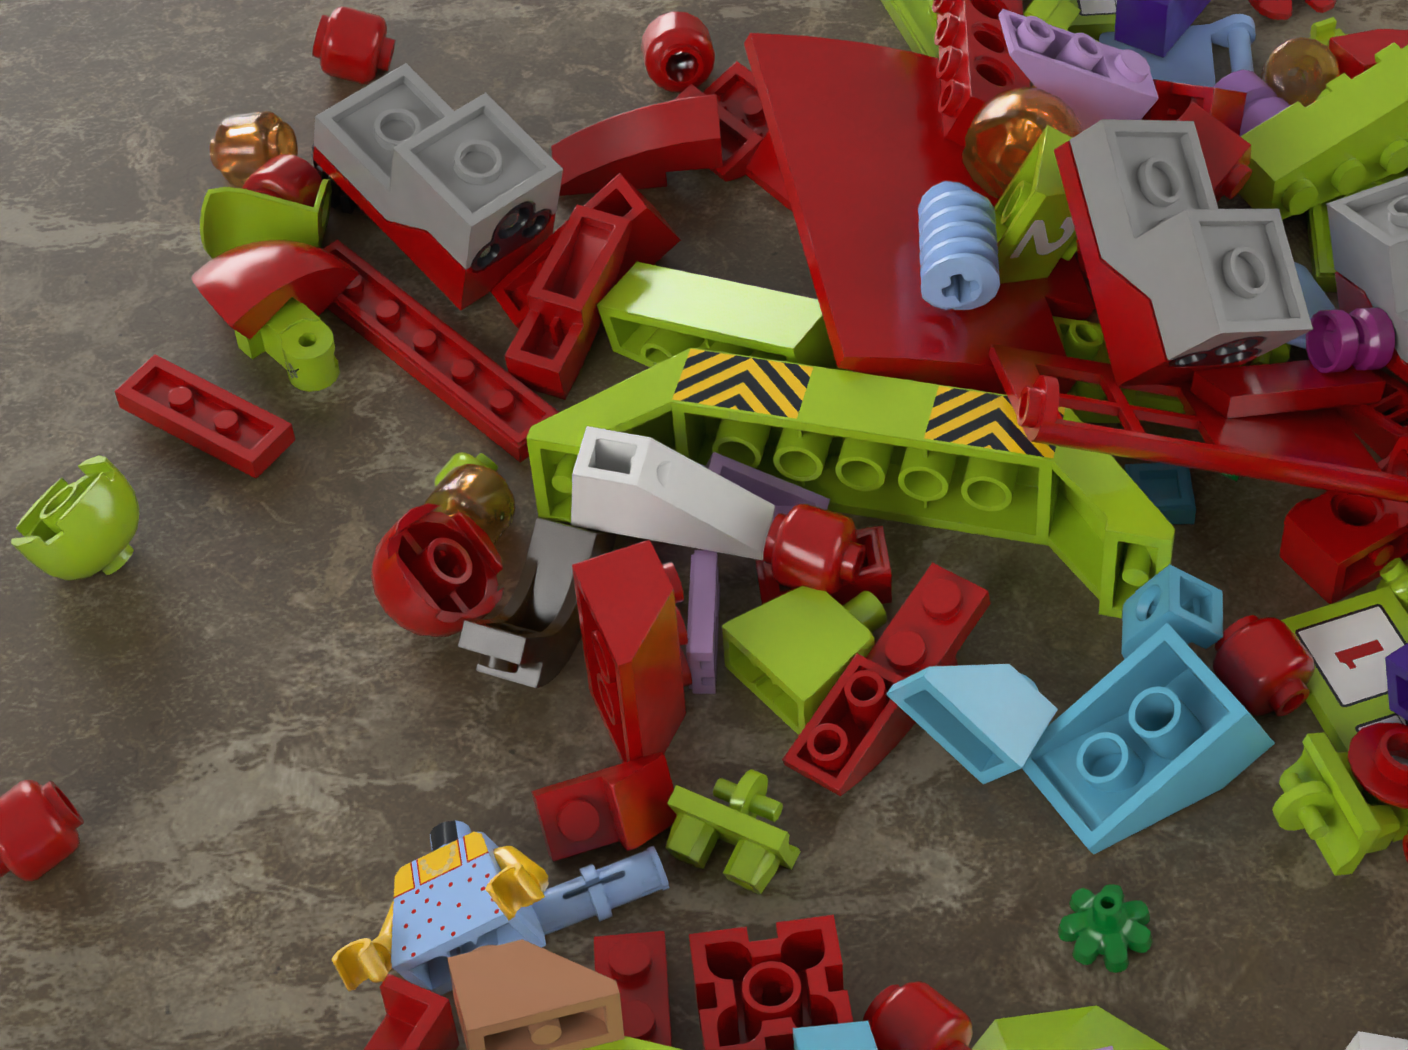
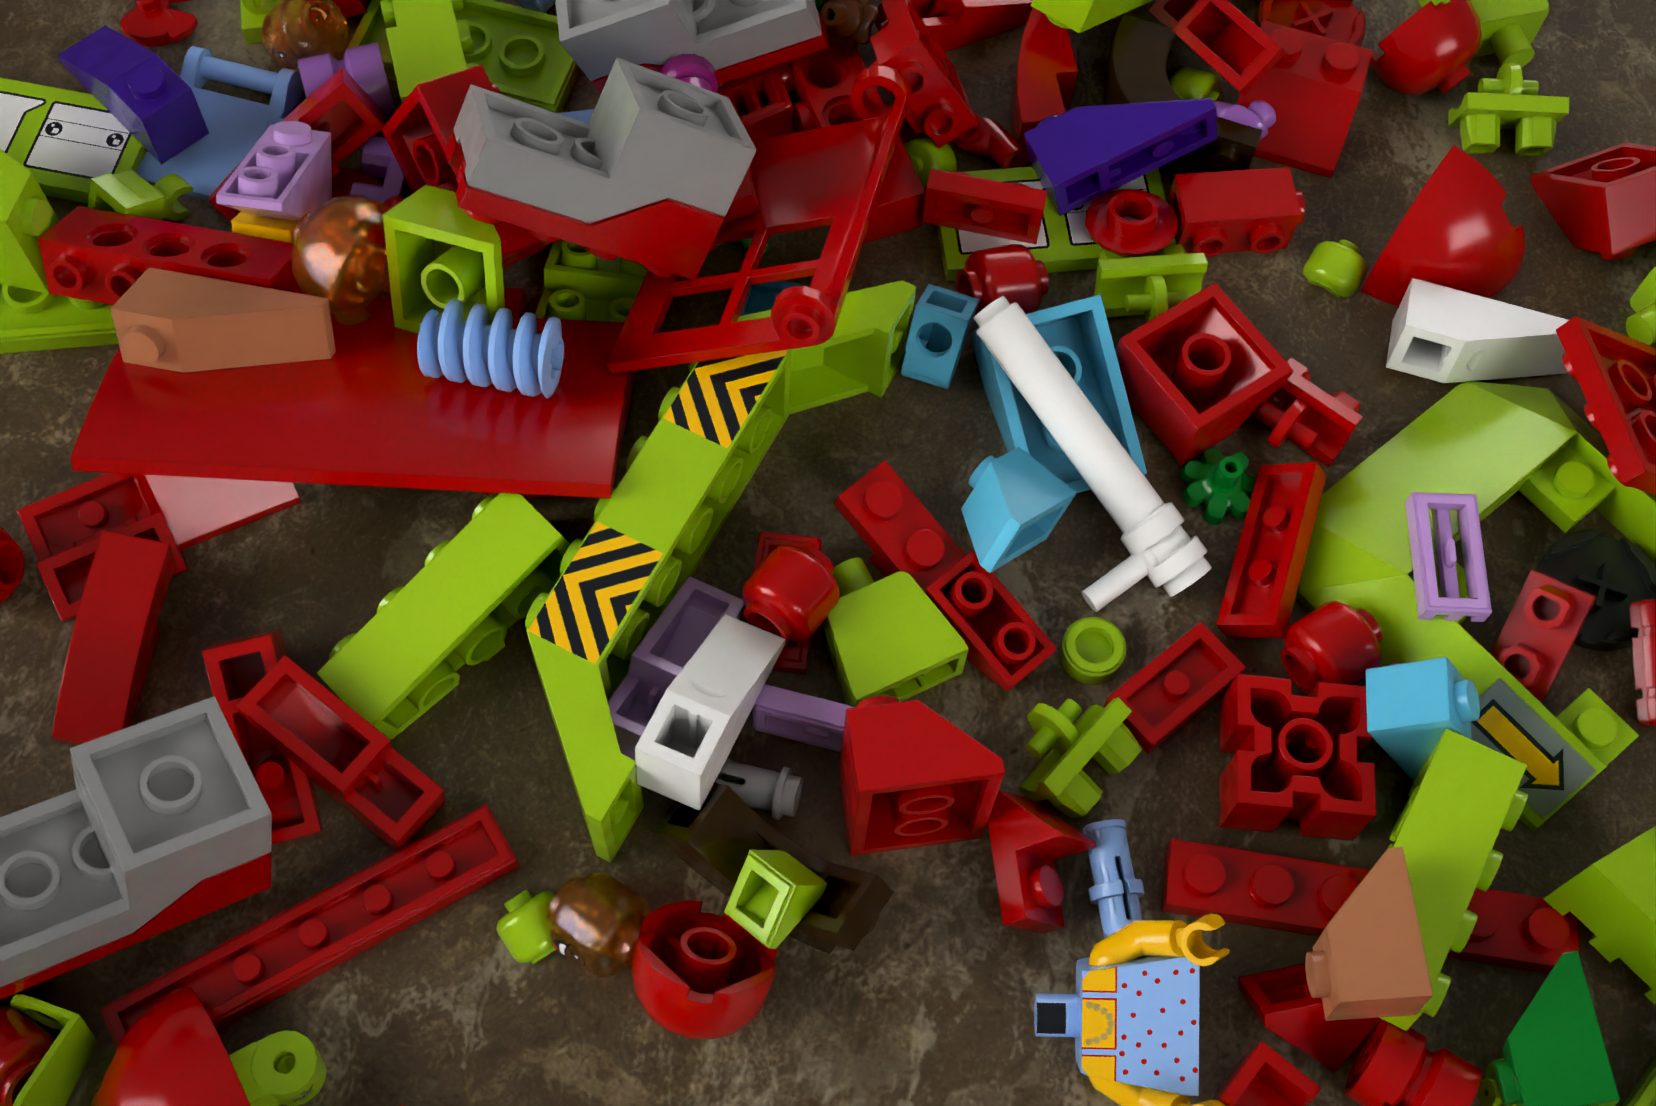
camera: 85 degrees left, 15 degrees up
(511, 597) = (773, 895): none -> lime slope
(860, 839) = (1092, 650): none -> lime tile
(865, 919) = (1177, 686): none -> red plate
(916, 81) = (218, 324): none -> nougat slope
(1010, 842) = (1148, 525): none -> white cylinder
(1031, 973) = (1272, 551): none -> red plate
(1212, 845) = (1198, 372): none -> red slope
(1217, 967) = (1309, 416): none -> red hips
(1346, 604) = (983, 206): none -> red plate

